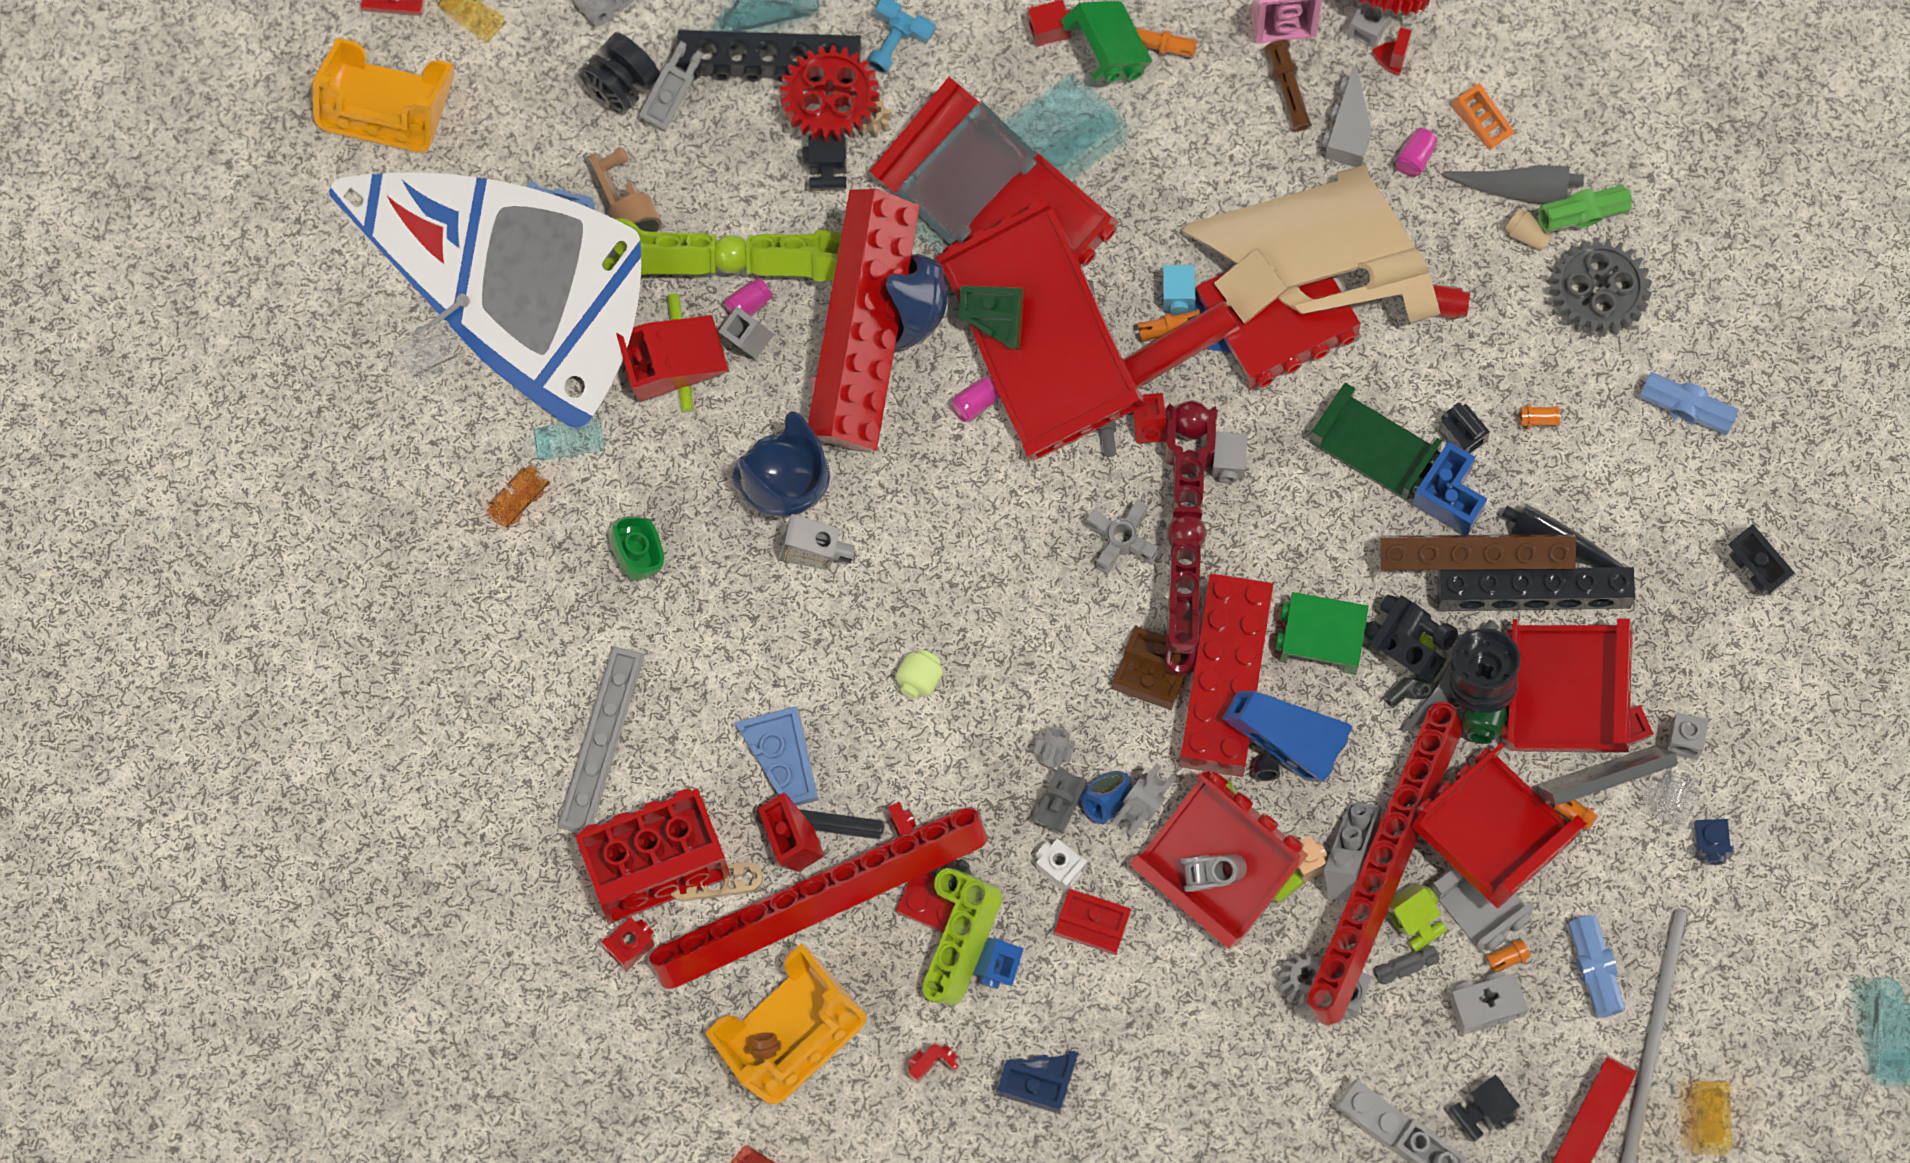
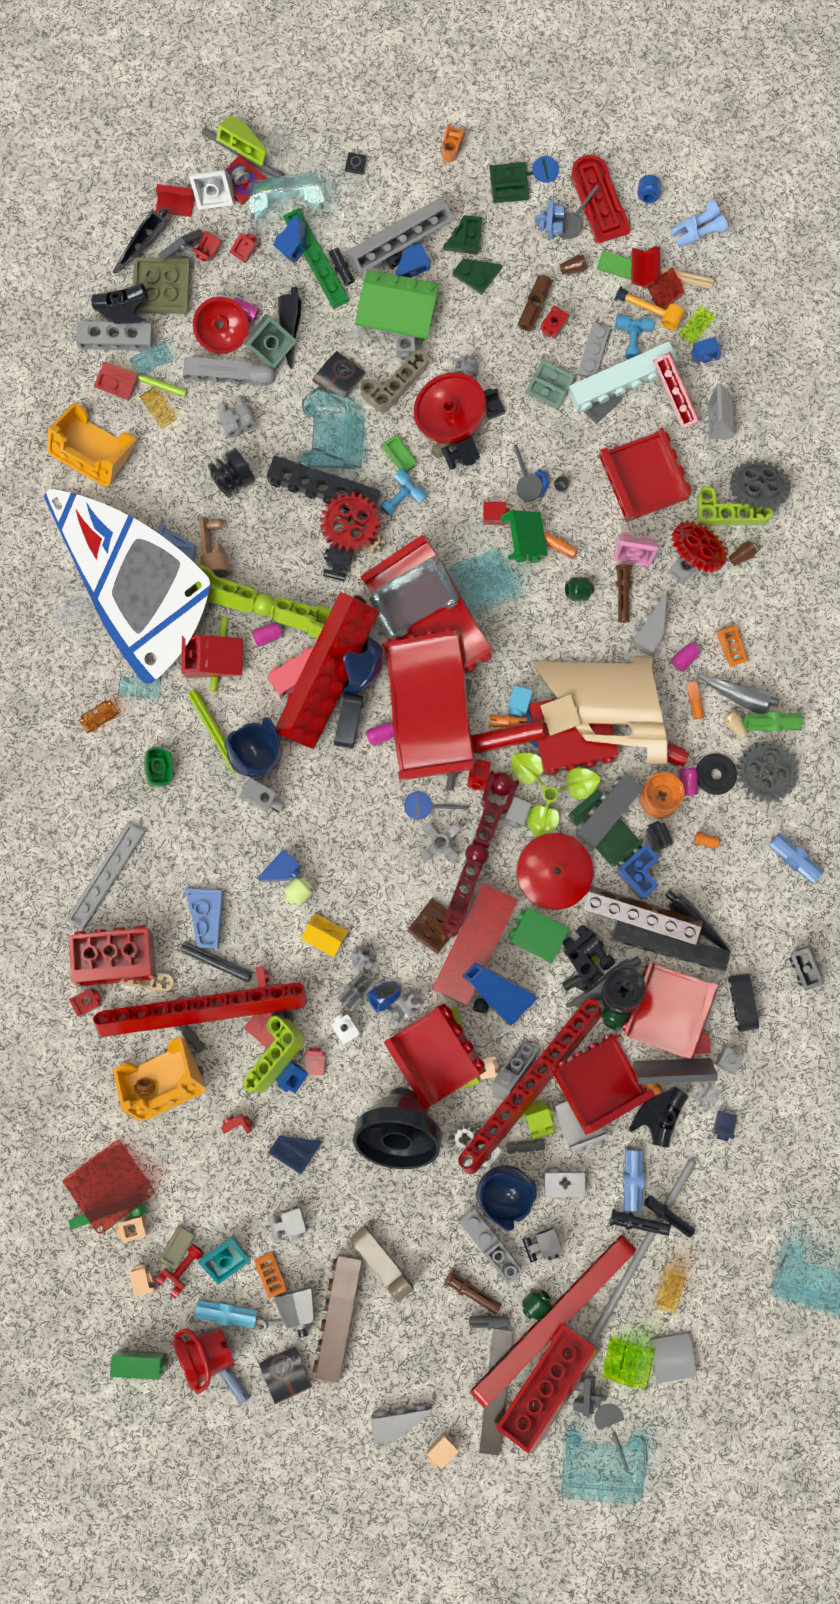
camera: 10 degrees right, 10 degrees up
(461, 300) = (101, 586): light grey hinge -> none
(669, 89) = (258, 491): light grey hinge -> none
(705, 467) = (210, 724): none -> lime axle
(746, 332) = (259, 655): light grey brick -> none
(790, 833) = (195, 966): red slope -> none
(800, 354) = (286, 677): none -> coral brick
(831, 960) = (192, 1038): none -> dark grey axle
(880, 648) = (280, 869): none -> blue slope
(918, 391) = (348, 720): none -> black beam
(981, 731) = (324, 935): none -> yellow panel
(994, 311) = (406, 687): dark green wing -> none
(1027, 929) = (315, 1061): none -> bracket
(1071, 492) = (419, 805): none -> blue piece
(1092, 921) = (353, 1067): red plate -> none
(1199, 995) = (398, 1132): none -> black cone
(1207, 871) = (425, 1061): light grey piece -> none
(1217, 97) = (579, 589): none -> dark green head
(1272, 457) = (545, 819): none -> lime plant
(1309, 555) = (537, 876): none -> red dish
(1372, 414) = (609, 811): none -> dark grey brick
(1392, 54) = (691, 590): red tile -> none
(1401, 1039) = (506, 1195): none -> dark blue piece
(1447, 349) = (664, 785): none -> orange wheel
(1452, 212) = (695, 700): none -> orange axle
(1482, 335) = (689, 779): none -> dark pink piece
(1508, 956) = (584, 1159): orange pin -> none
(1525, 296) = (727, 770): none -> black wheel
(1607, 851) = (660, 1115): none -> black pin
(1661, 999) = (662, 1211): none -> black axle
(1670, 1025) = (630, 1221): none -> black pin
(1681, 642) = (745, 1006): none -> black beam

